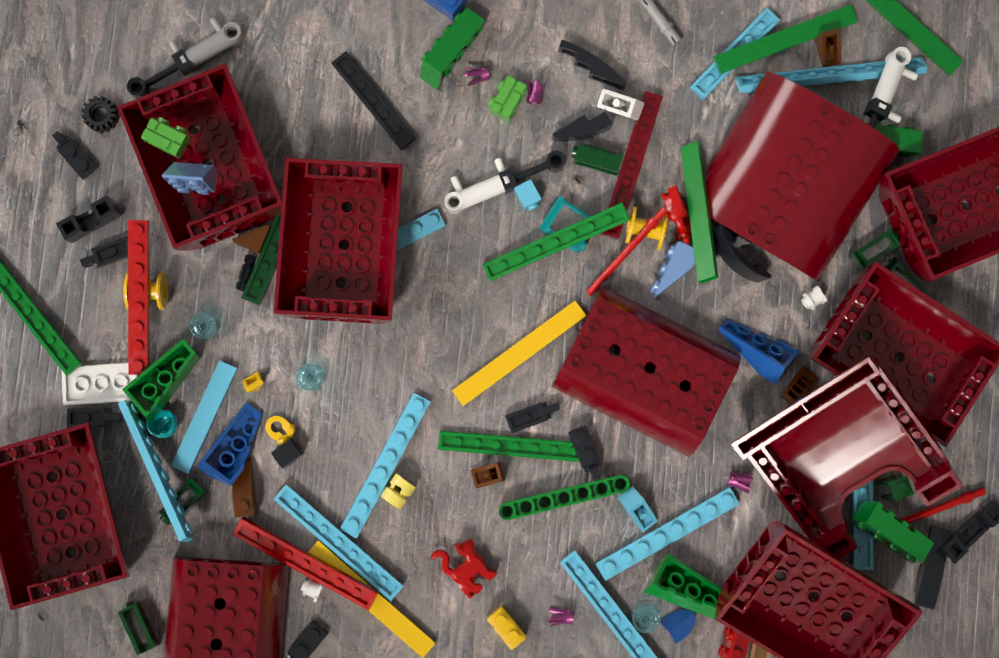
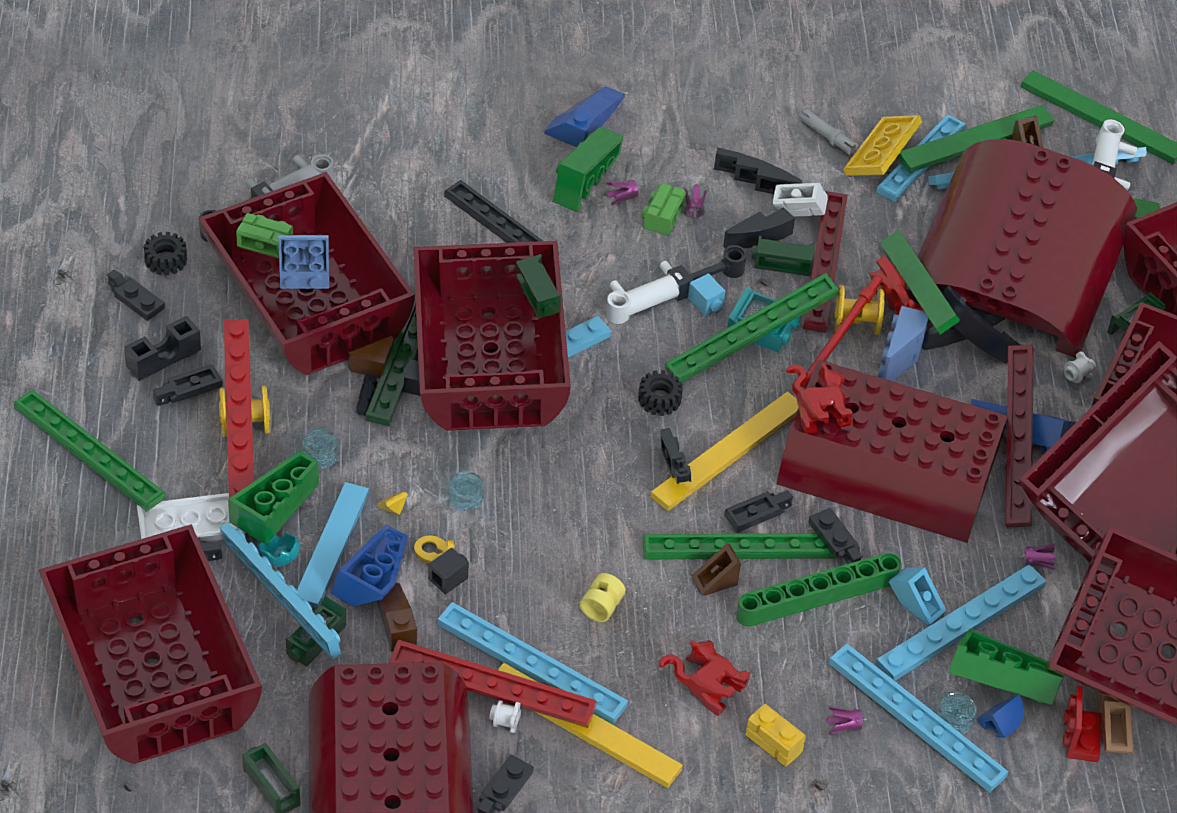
camera: 10 degrees left, 35 degrees down
(377, 219) = (538, 287): none -> dark green window
(385, 465) = (579, 577): medium azure plate -> none
(471, 304) = (660, 382): none -> black tyre
(473, 366) = (674, 459): none -> black hinge
(587, 351) = (818, 402): none -> red animal
(703, 43) = (882, 145): none -> yellow tile
(748, 370) = (1019, 433): none -> dark red plate

